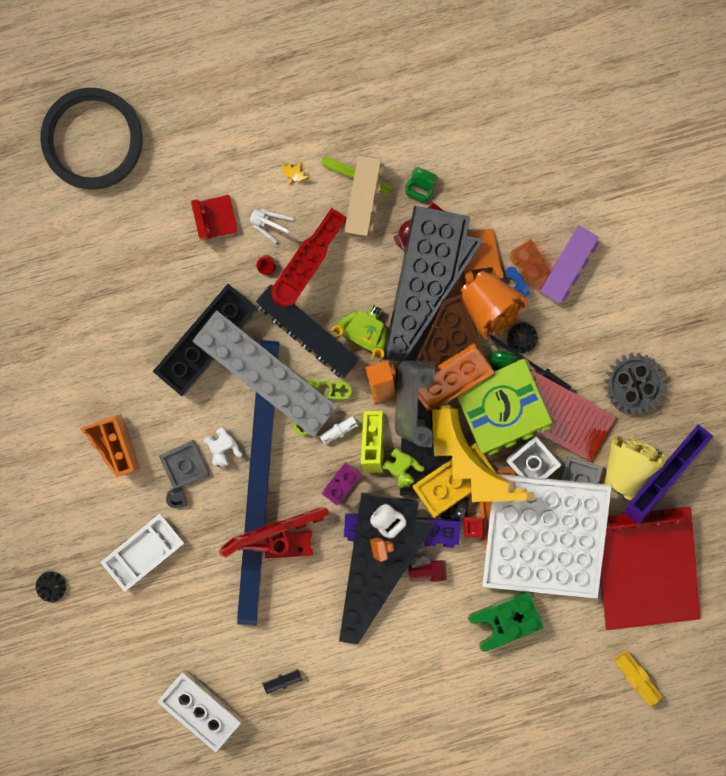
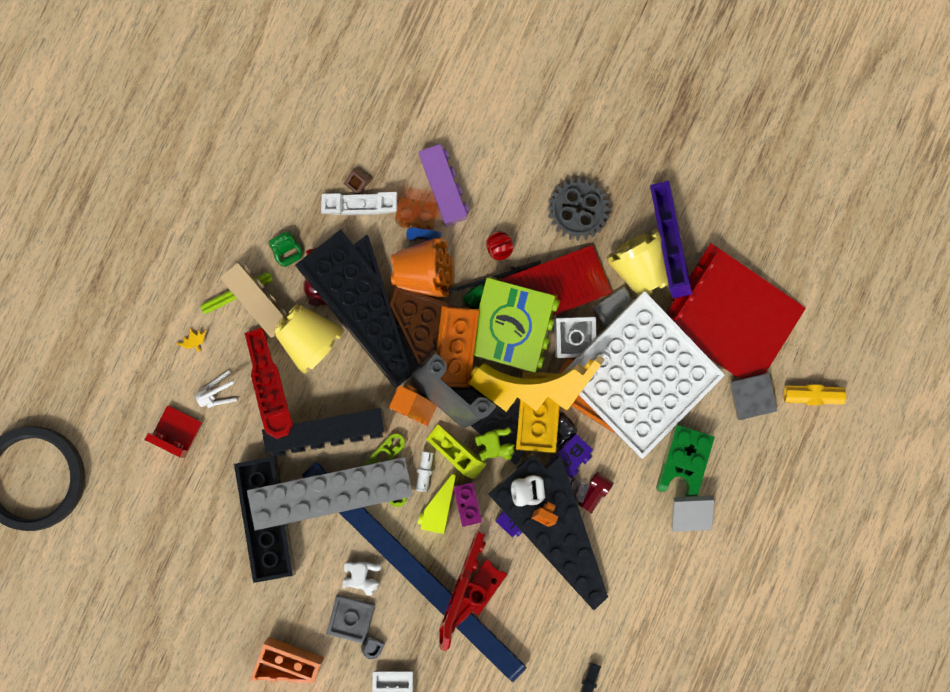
camera: 50 degrees left, 5 degrees down
(266, 264) = (246, 421): red tile -> none
(315, 464) = (436, 512): none -> neon yellow slope
(364, 330) = (362, 386): lime torso -> none
(367, 259) = (306, 336): none -> light yellow cone
(472, 657) = (692, 513): none -> light grey tile
(473, 527) = (589, 426): red tile -> none
(484, 257) = (382, 244): orange flag -> none
(501, 212) = (359, 204): none -> white slope
(513, 337) = (464, 274): black gear -> none
(519, 195) = (357, 180): none -> reddish brown slope
(557, 346) = (499, 245): none -> red piece
(598, 632) = (753, 396): none -> flat silver tile

